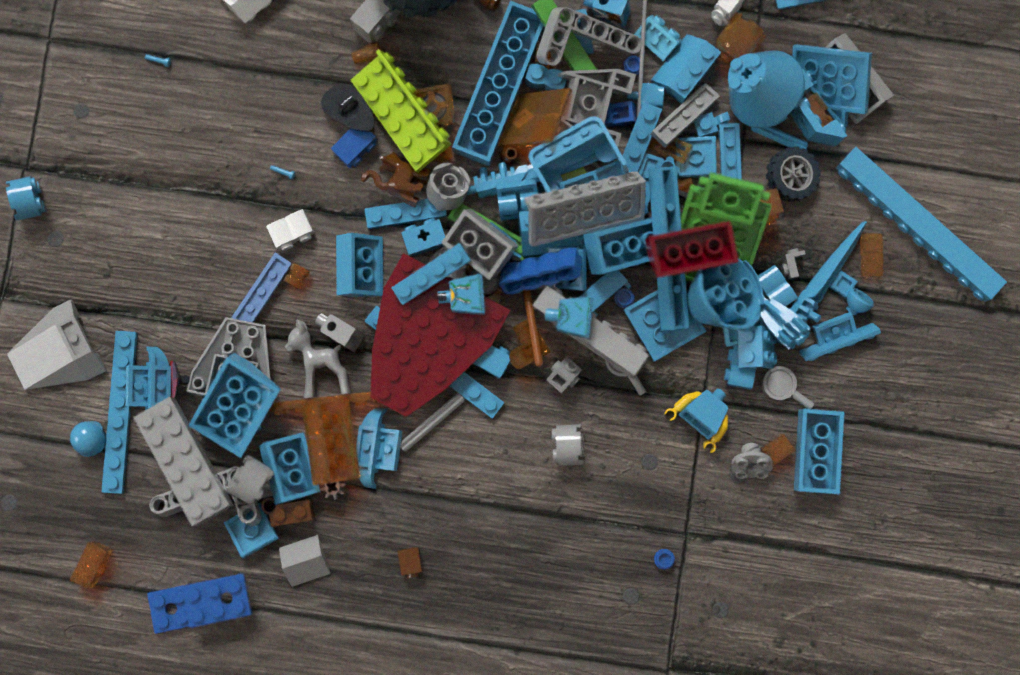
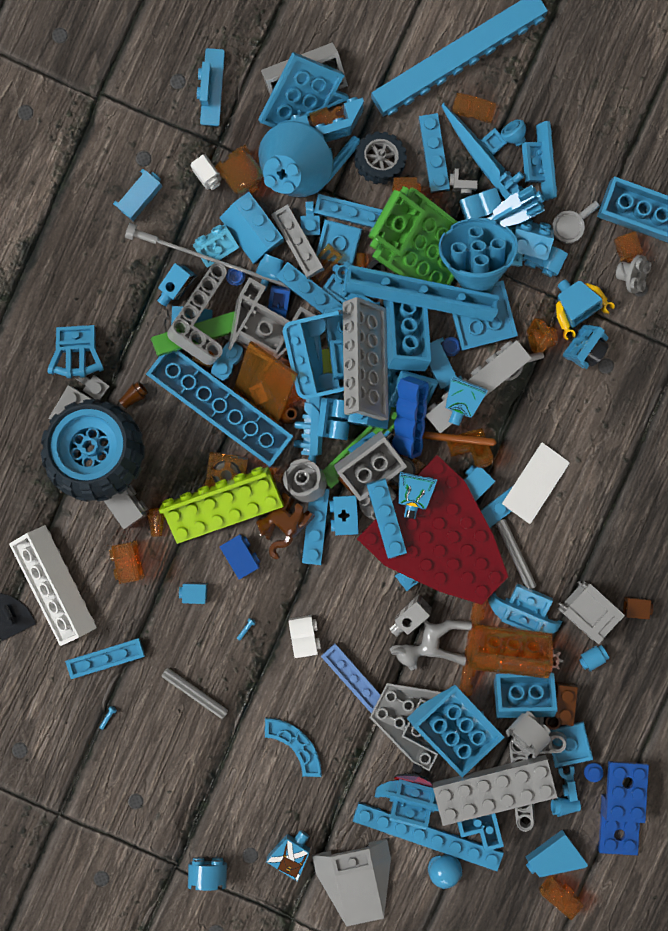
camera: 75 degrees left, 5 degrees up
(65, 277) = (290, 855): none -> torso
(131, 548) = (555, 857): none -> dark azure slope
(145, 465) = (488, 830): none -> dark azure brick
(182, 255) = (299, 743): none -> dark azure tile
(186, 543) = (563, 806): none -> dark azure cone
(205, 138) = (194, 693): none -> light grey axle
(206, 542) = (569, 787): none -> dark azure plate
(216, 41) = (105, 658): none -> dark azure plate
(228, 563) = (593, 772): none -> blue plate
(296, 276) = (348, 642): clear orange wheel -> none
(304, 561) = (609, 703): light grey slope -> none
(305, 109) = (193, 593): none -> dark azure brick
(319, 35) = (127, 562): none -> clear orange slope
(346, 530) = (593, 658): none -> dark azure brick
(348, 108) = (204, 553): black shield -> none
(359, 265) = (354, 581): dark azure slope -> none
(392, 512) = (591, 612): none -> light grey container
(509, 421) = (535, 483): none -> white sticker
(564, 374) = (504, 419): light grey brick -> none
(568, 445) = (573, 435): light grey brick -> none
(659, 386) = (541, 337): none -> clear orange piece
(663, 435) = (590, 350): none -> dark azure piece
(692, 249) = (434, 273): dark red slope -> none
(814, 228) = (434, 153): none -> dark azure plate

